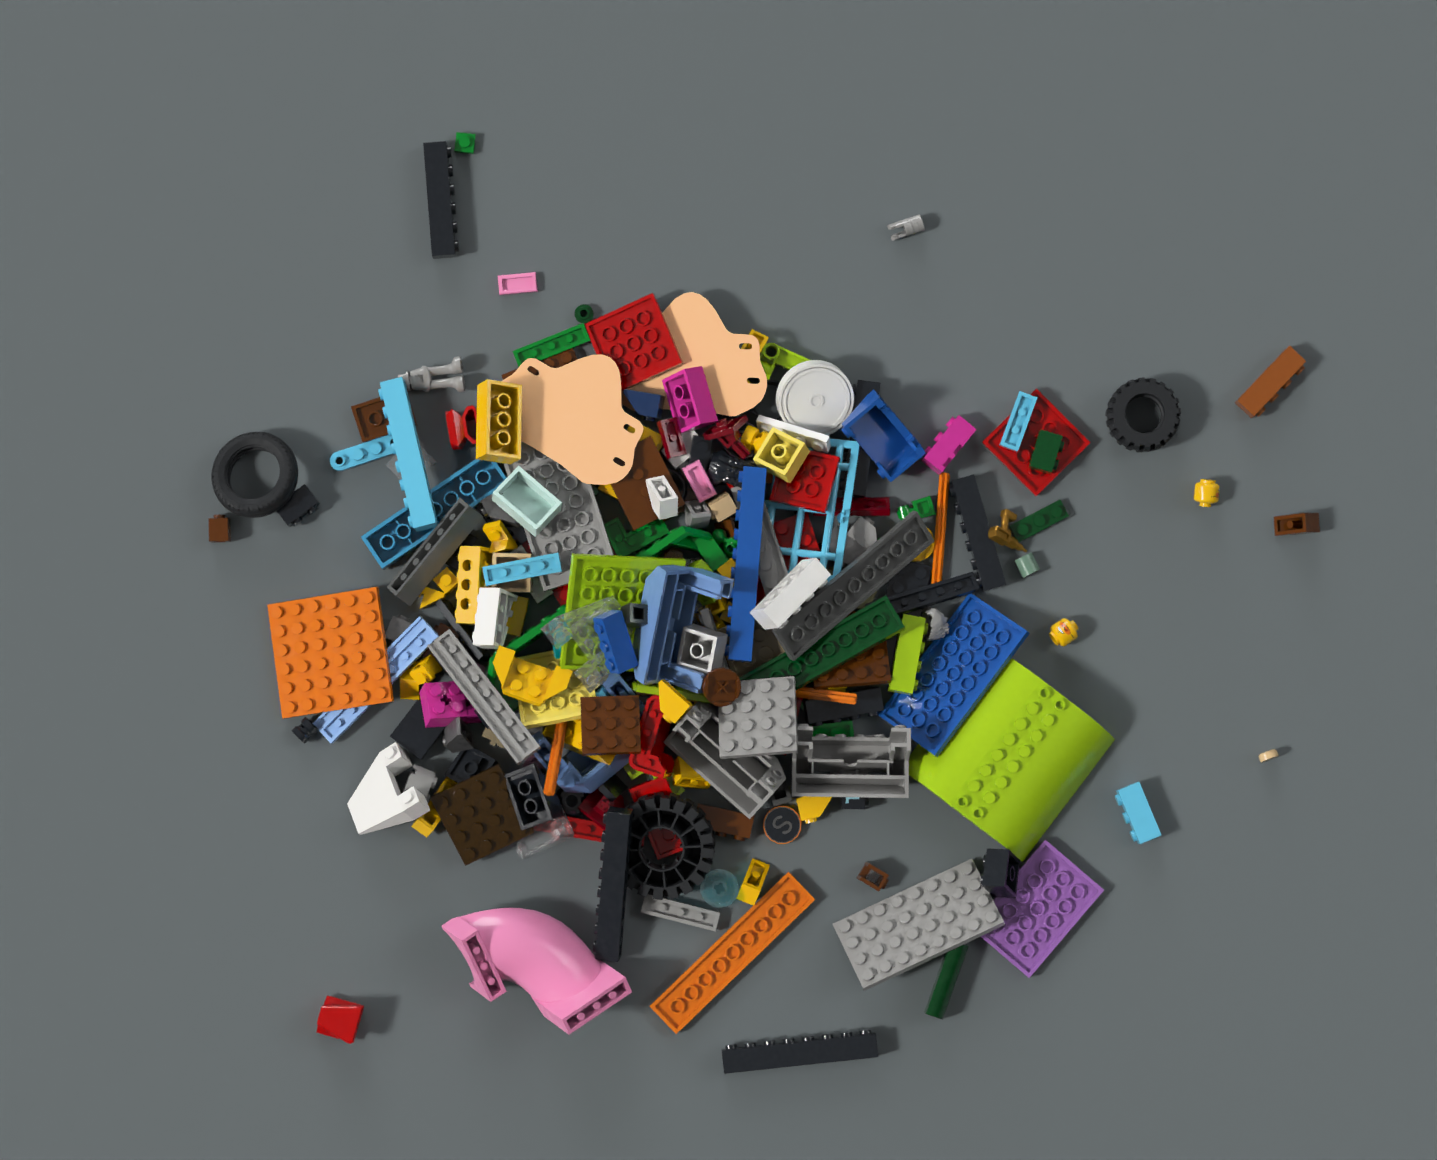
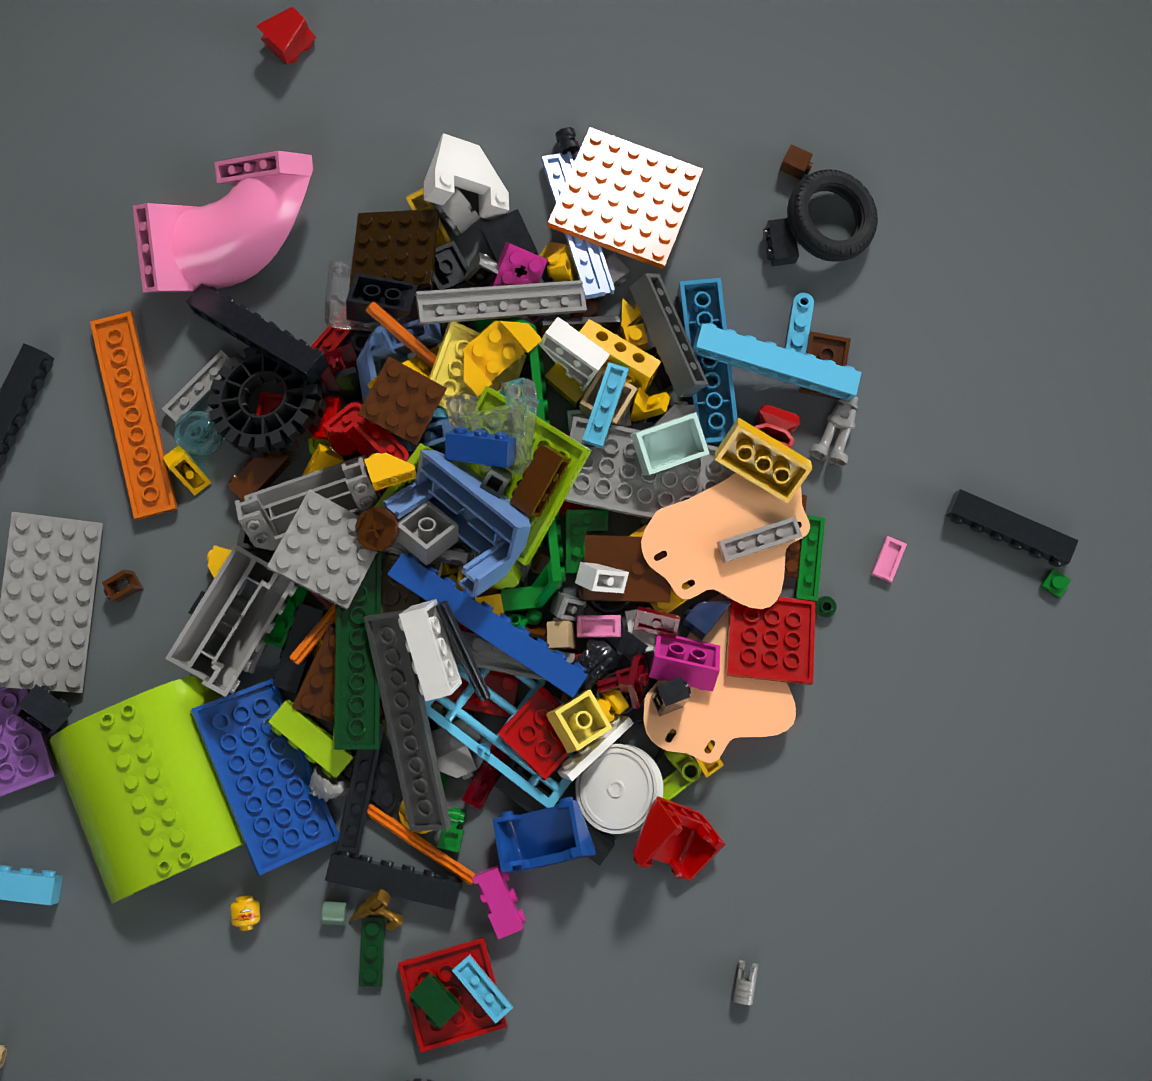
camera: 115 degrees right, 5 degrees down
(562, 392) = (759, 539): none -> light grey plate
(616, 581) = (539, 480): none -> reddish brown brick
(723, 395) = (671, 696): none -> black brick
(777, 571) = (463, 650): none -> black axle
(782, 824) = (222, 527): black tile -> none
(827, 334) = (676, 838): none -> red windscreen

